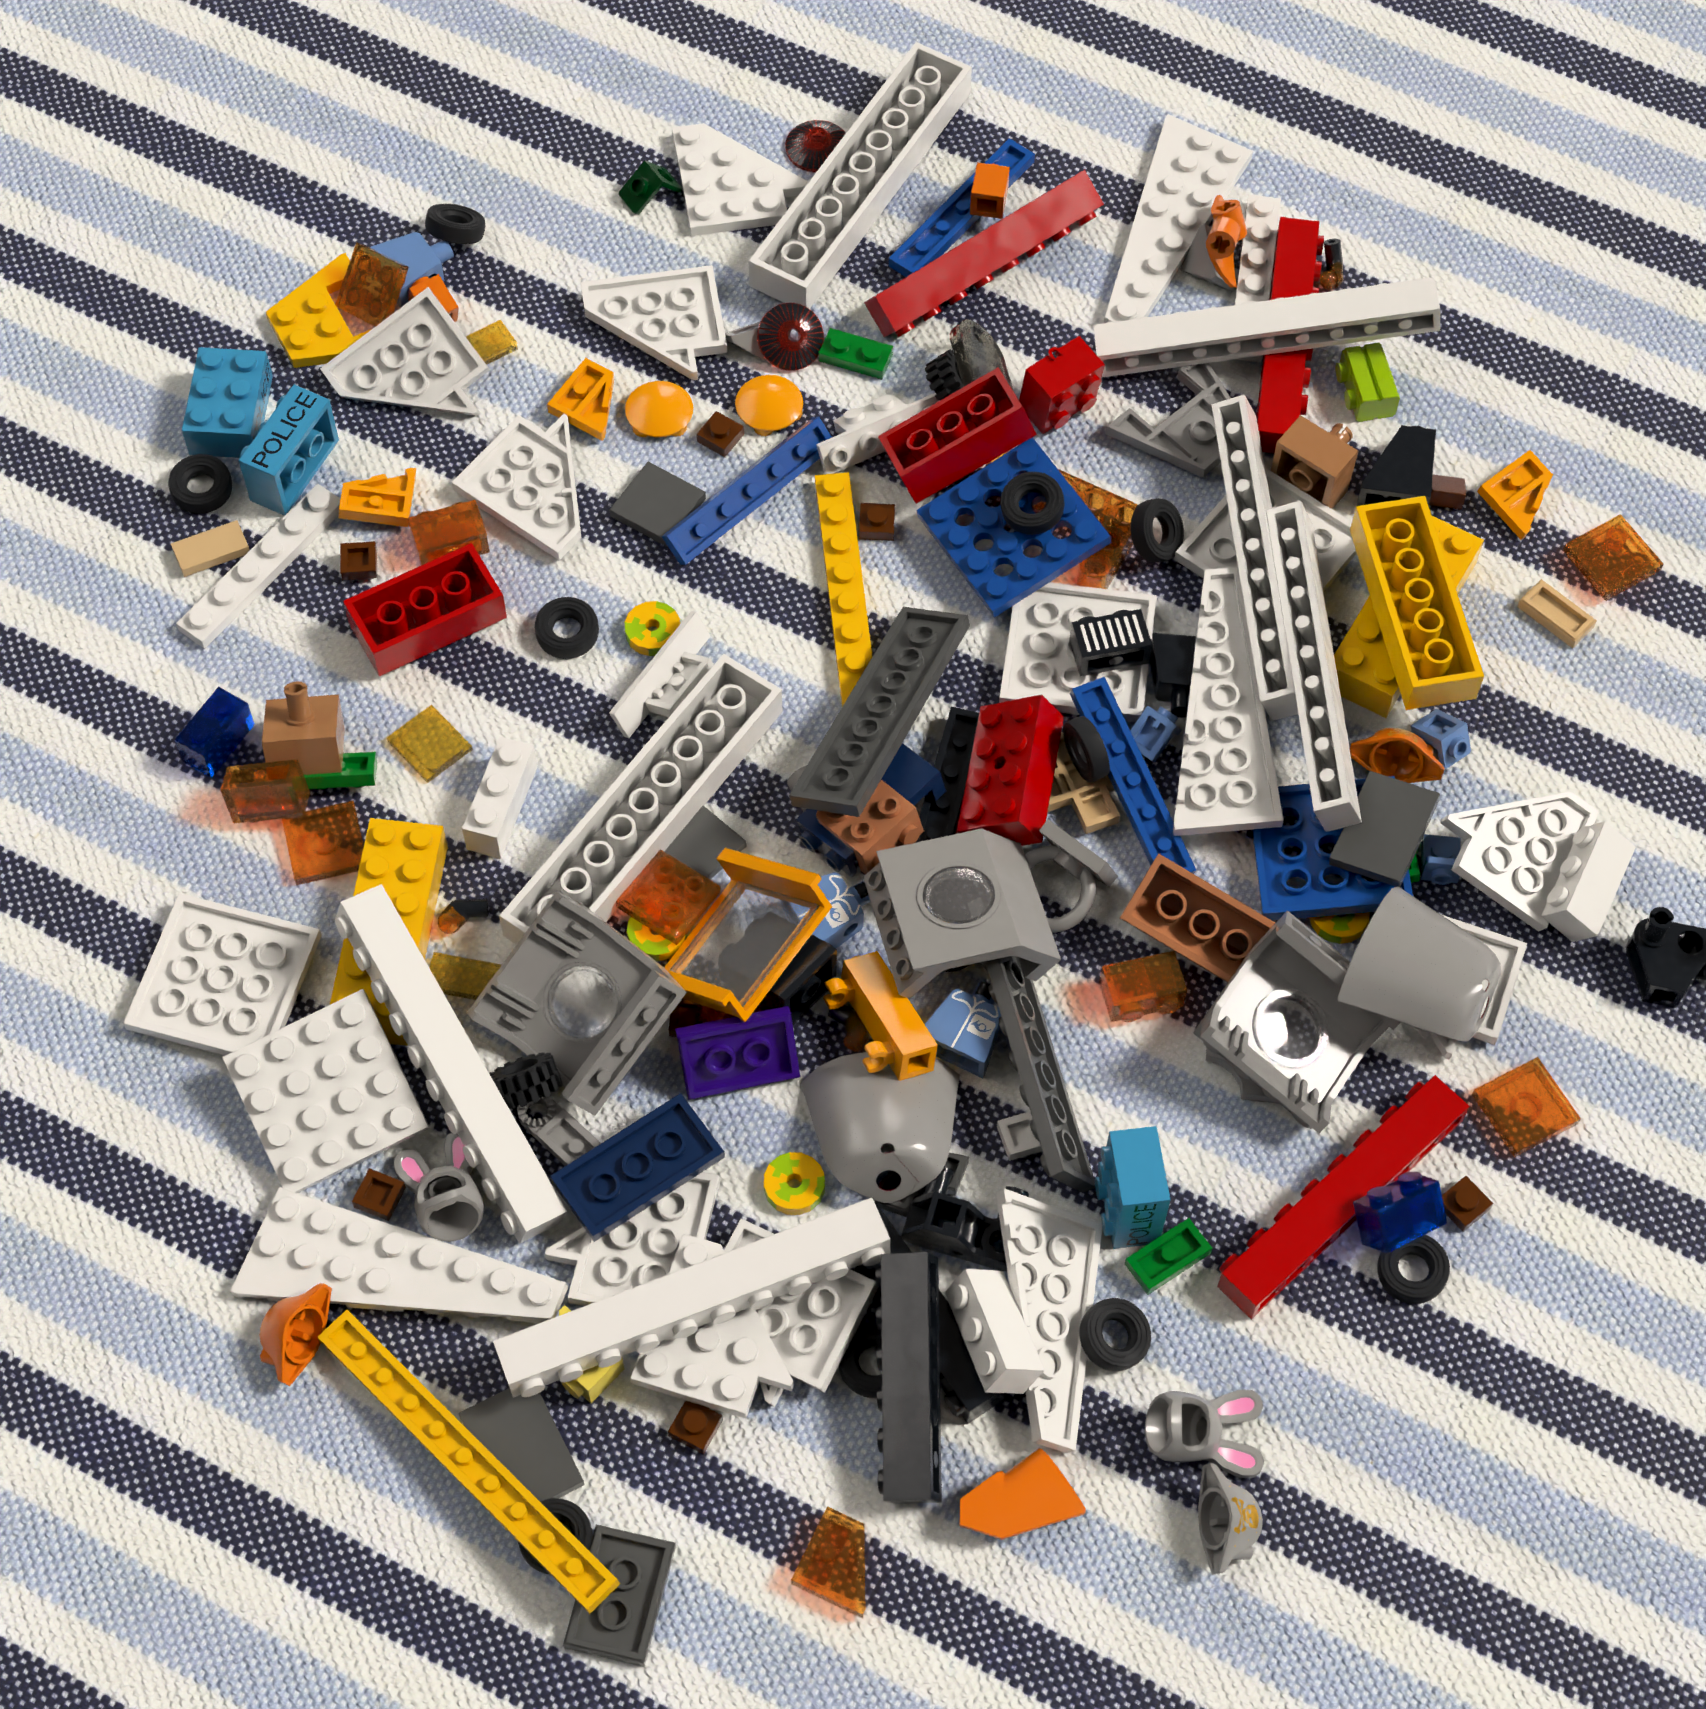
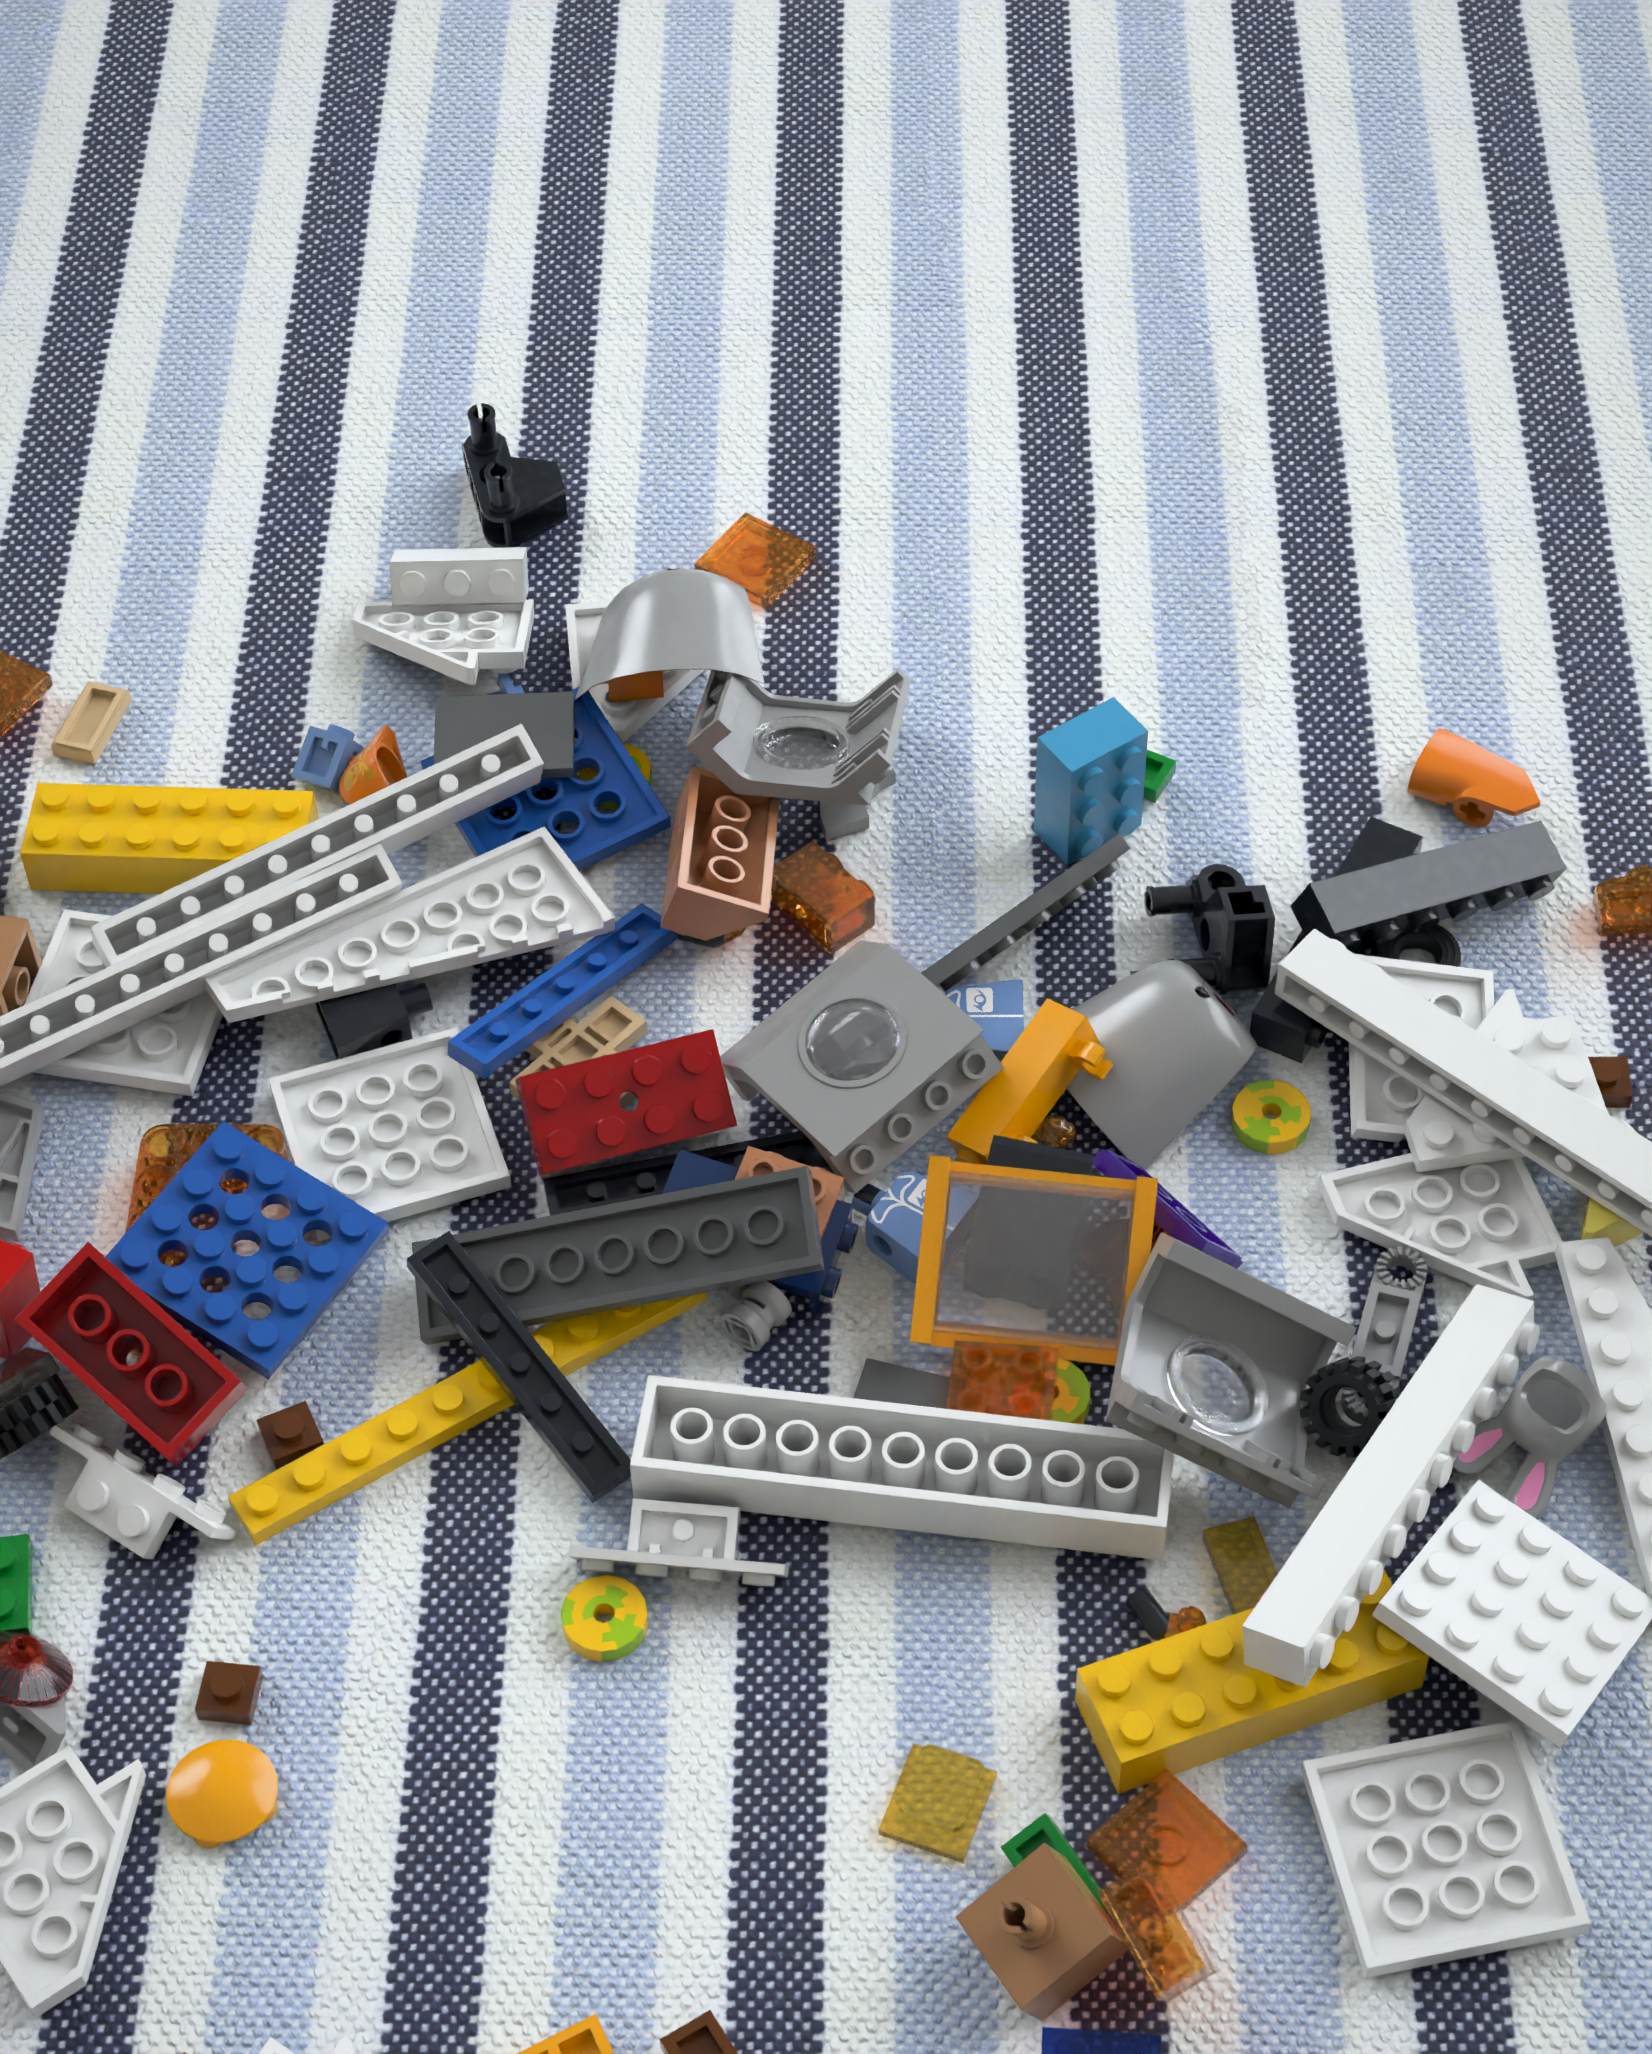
camera: 115 degrees left, 10 degrees down
(378, 1194) = (1587, 1506): reddish brown plate -> none
(425, 609) = (745, 1895): red brick -> none
(447, 530) = (592, 1949): clear orange brick -> none
(500, 797) = (979, 1649): white brick -> none
(528, 484) = (444, 1894): white wing -> none
(566, 608) = (669, 1752): black tyre -> none
(585, 398) = (250, 1896): light orange wing -> none
(637, 1167) = (1375, 1240): dark blue plate -> none
(656, 502) = (392, 1712): dark grey tile -> none
(746, 492) = (306, 1593): blue plate -> none
(769, 403) = (146, 1655): light orange dish -> none
(843, 634) = (520, 1366): none -> black plate
(994, 1331) = (1329, 835): white brick -> none
(1017, 1136) = (1074, 935): white plate -> none
(1038, 522) = (217, 1239): black tyre -> none
(1053, 1281) = (1231, 833): white wing -> none
(1078, 862) = (708, 991): light grey tile -> none
(1086, 749) = (555, 1030): black tyre -> none
(1110, 642) = (377, 1078): black brick -> none
(1131, 1318) = (1222, 763): black tyre -> none
(1142, 530) = (169, 1107): black tyre -> none
(1154, 731) = (464, 1005): medium blue bracket -> none
(1190, 1430) = (1300, 671): light grey piece -> none
(1227, 1519) = (1373, 621): light grey hat -> none
(1327, 1205) = (955, 650): red brick -> none
(1400, 1212) = (957, 591): clear blue brick -> none
(1412, 1291) = (997, 605): black tyre -> none
(1416, 603) = (187, 780): yellow brick -> none
(1465, 1203) = (897, 572): reddish brown plate -> none

